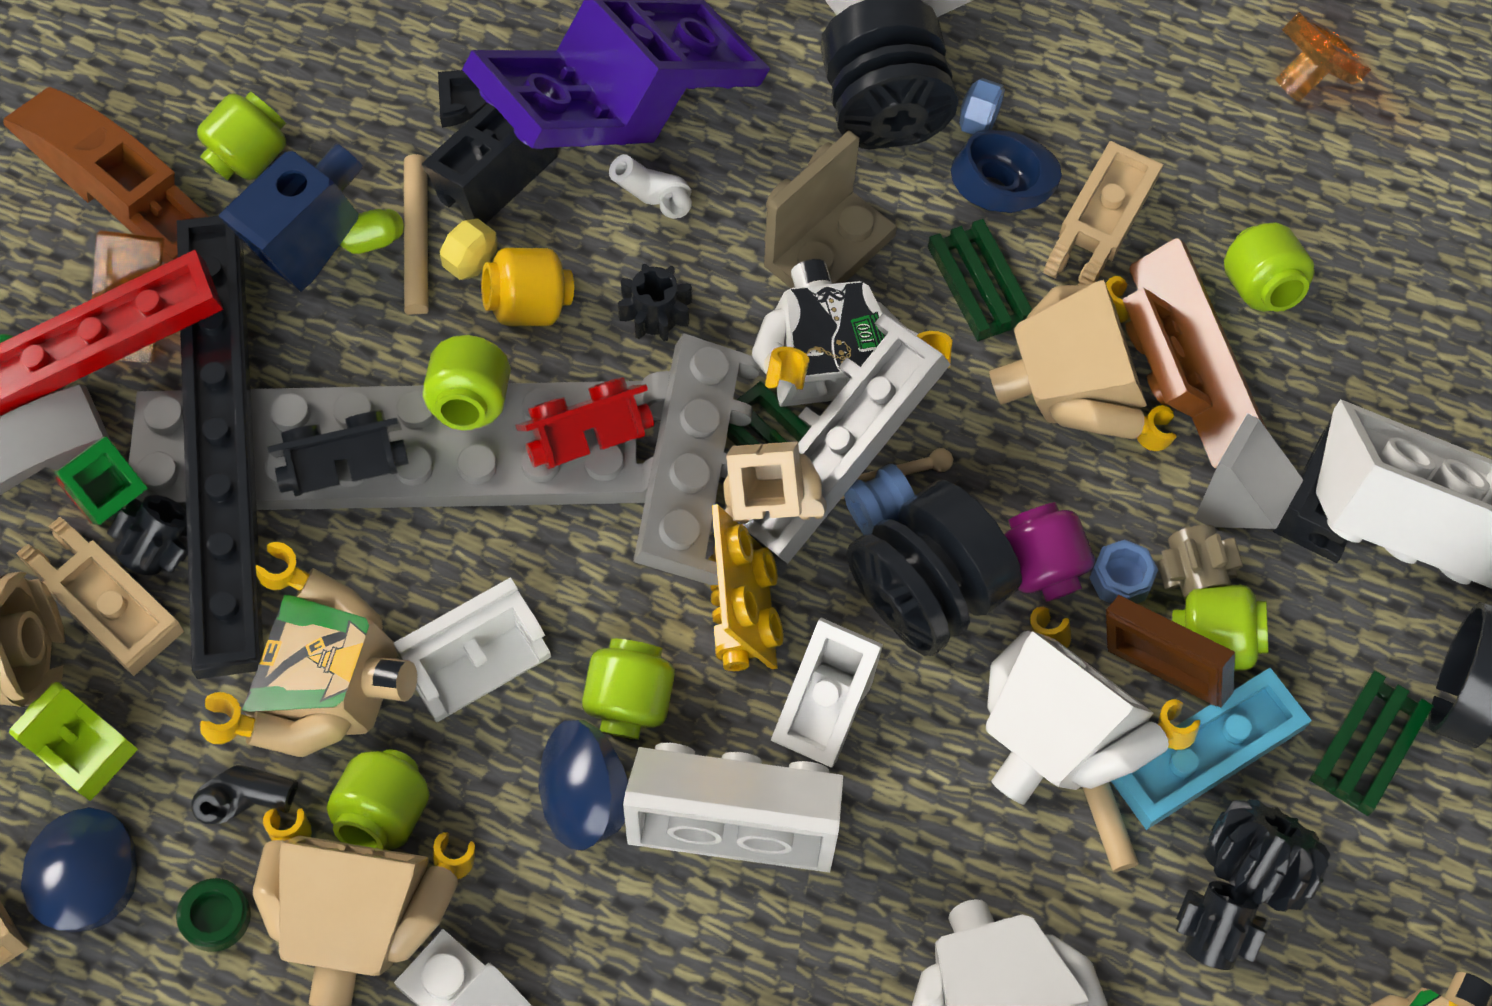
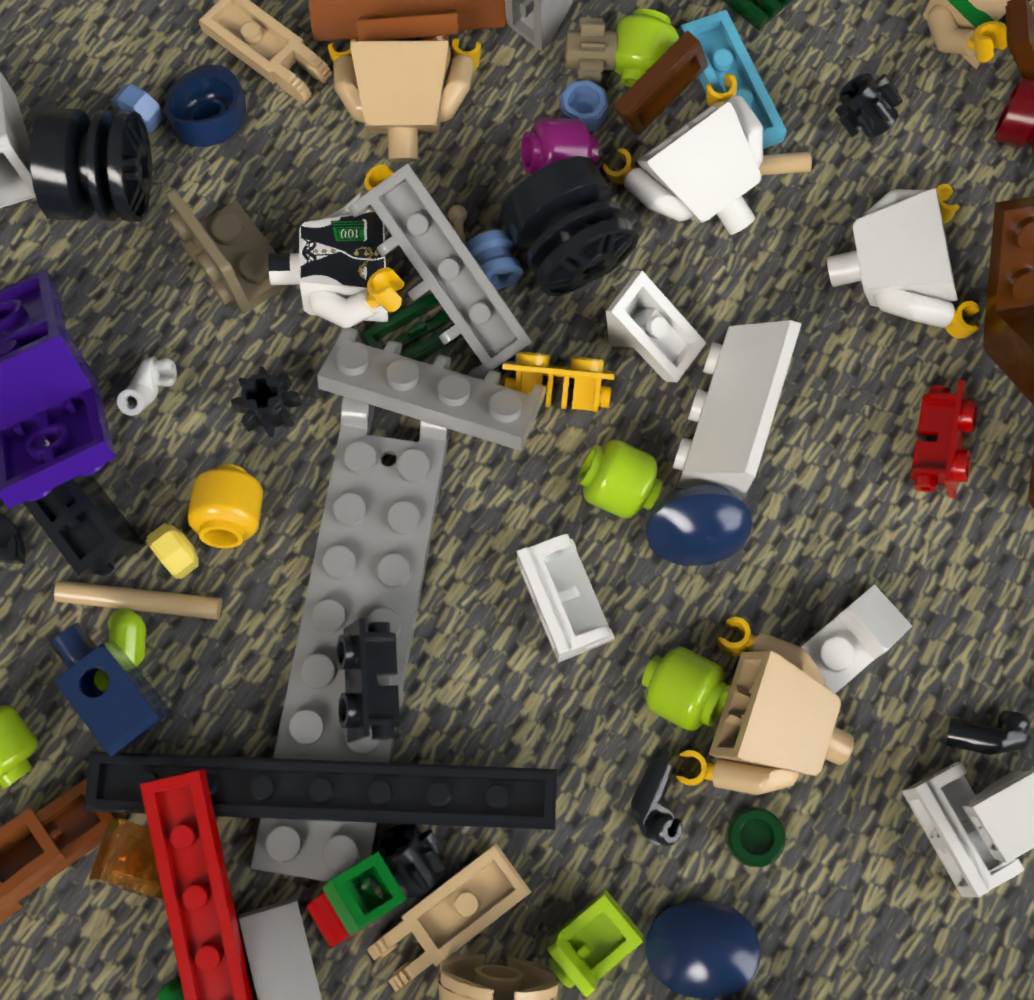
camera: 75 degrees left, 10 degrees up
(318, 671) = (567, 722): torso -> none
(466, 382) = (326, 560): lime head -> none
(561, 428) = (376, 446): red hinge -> none
(772, 480) = (487, 324): tan piece -> none
(961, 240) = (298, 133): dark green tile -> none
(1267, 855) = (827, 60): black gear -> none

